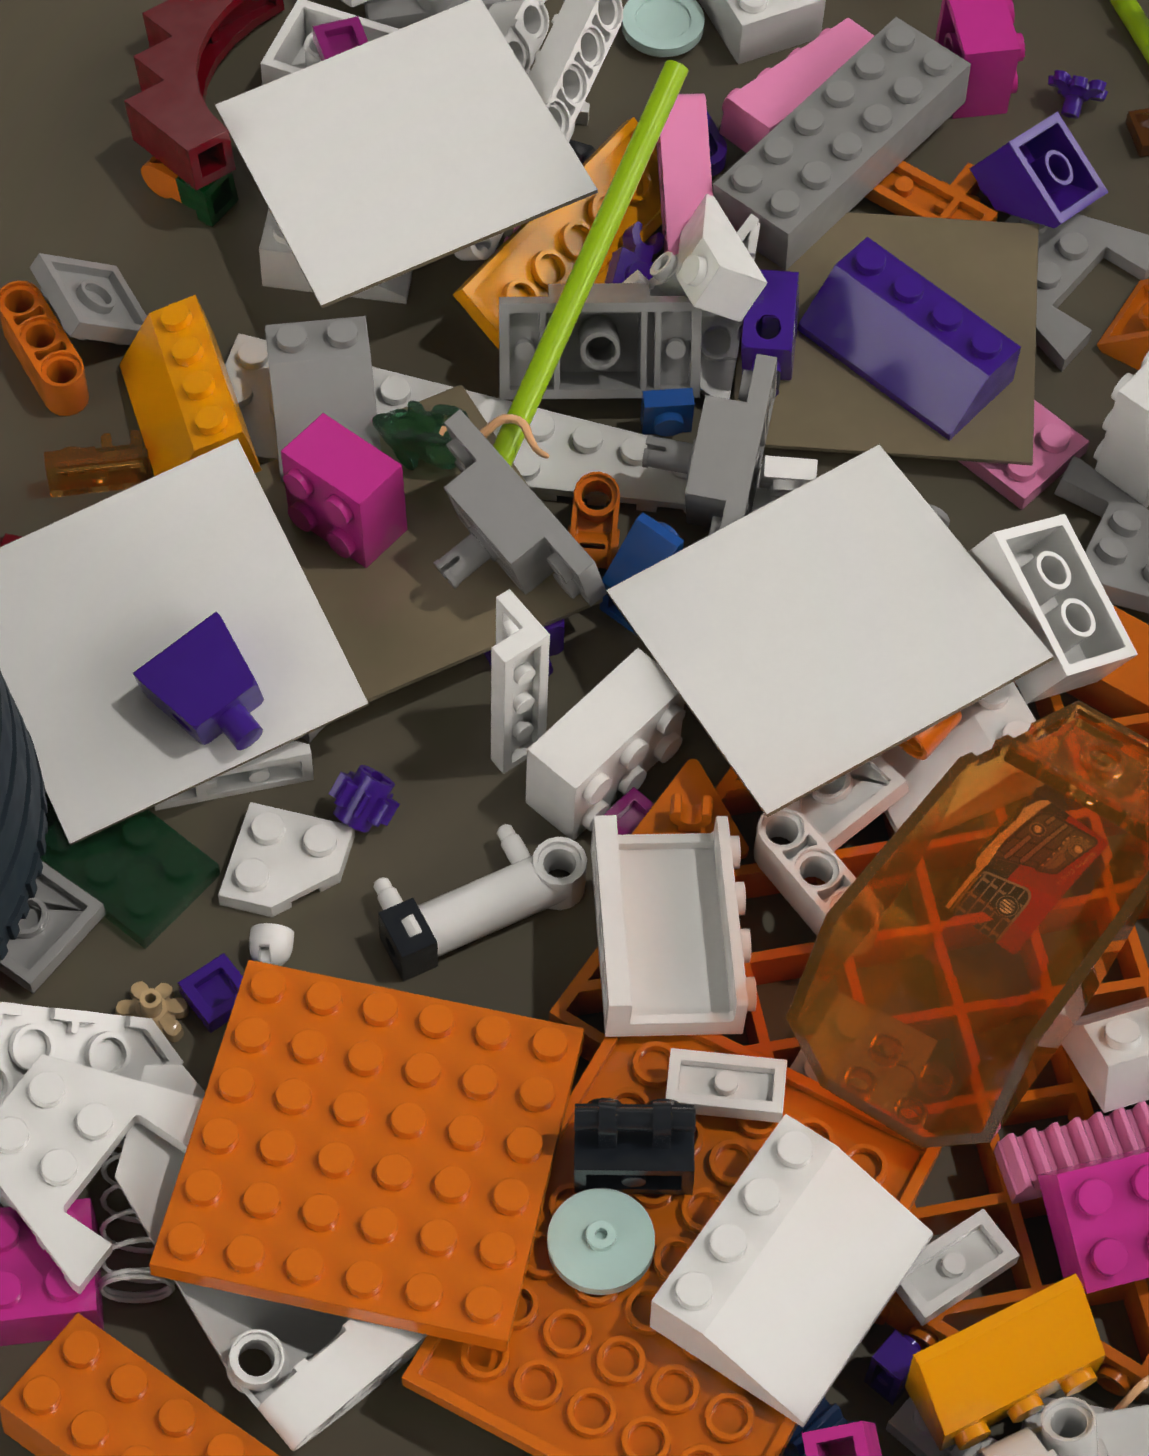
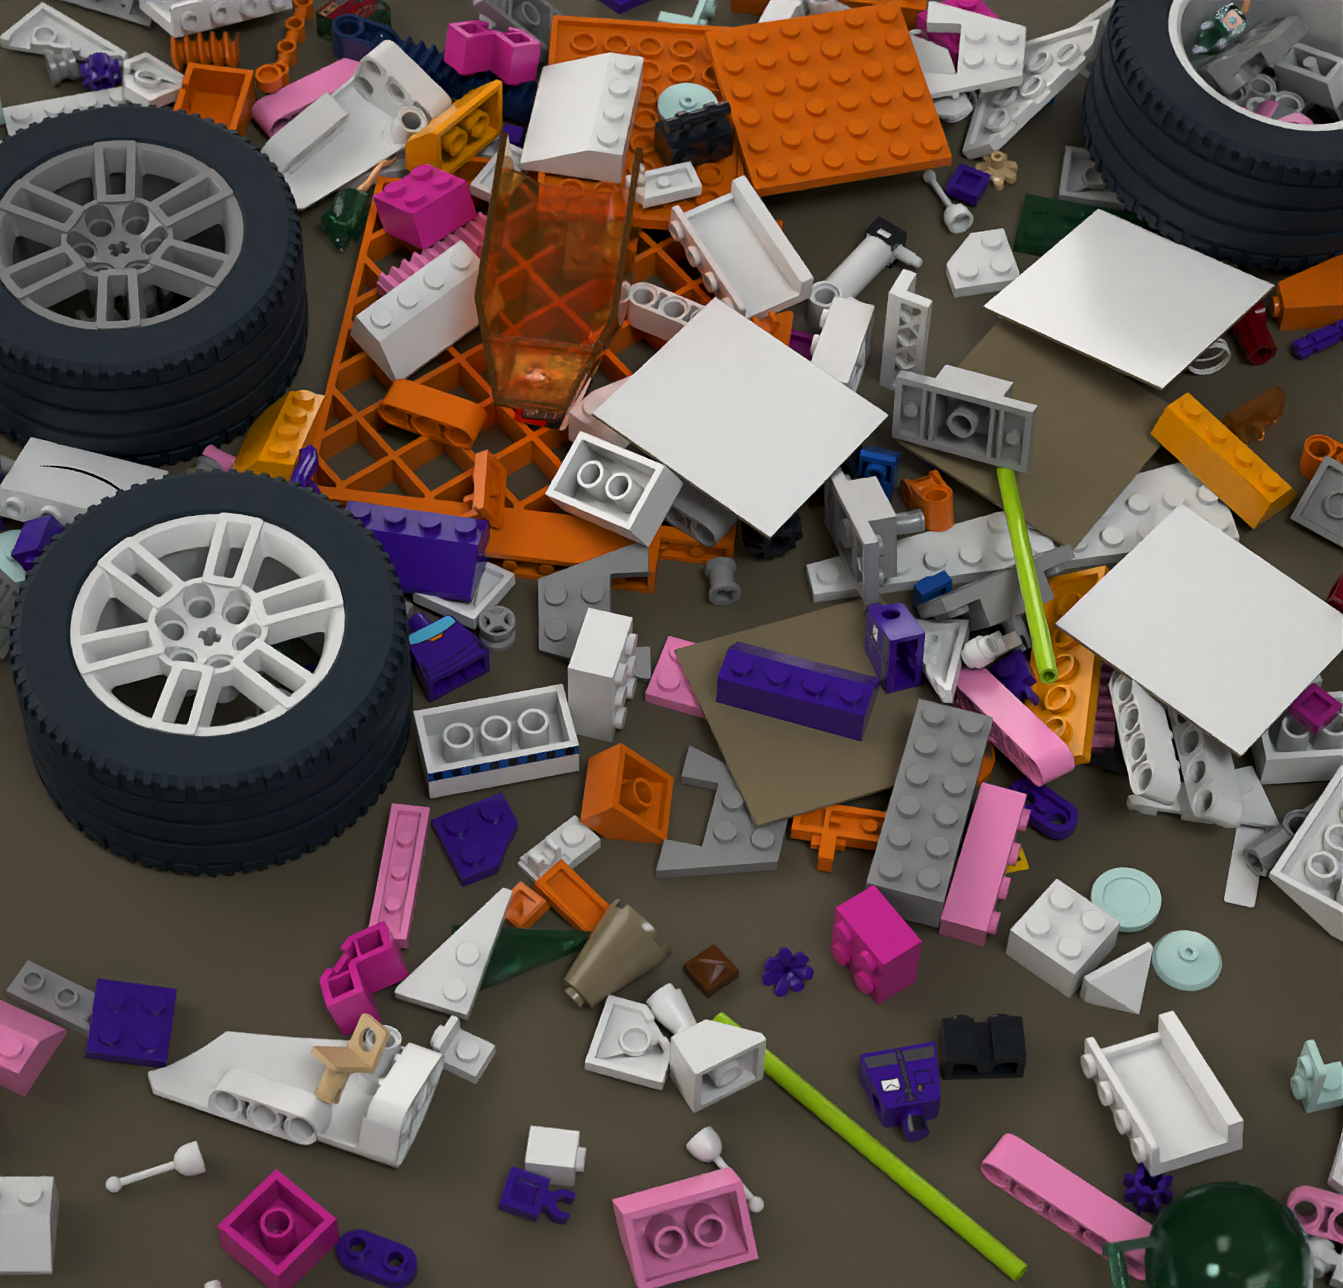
camera: 155 degrees right, 5 degrees down
(205, 685) = (1076, 268): dark purple torso -> none
(319, 371) = (1144, 485): light grey slope -> none
(344, 490) = (1083, 409): dark pink brick -> none
(364, 798) = (964, 289): dark purple gear -> none
(423, 434) = (1053, 477): clear green animal -> none
(716, 265) = (951, 626): white slope -> none
(786, 474) = (823, 539): white plate -> none
(1040, 175) = (774, 858): dark purple slope -> none

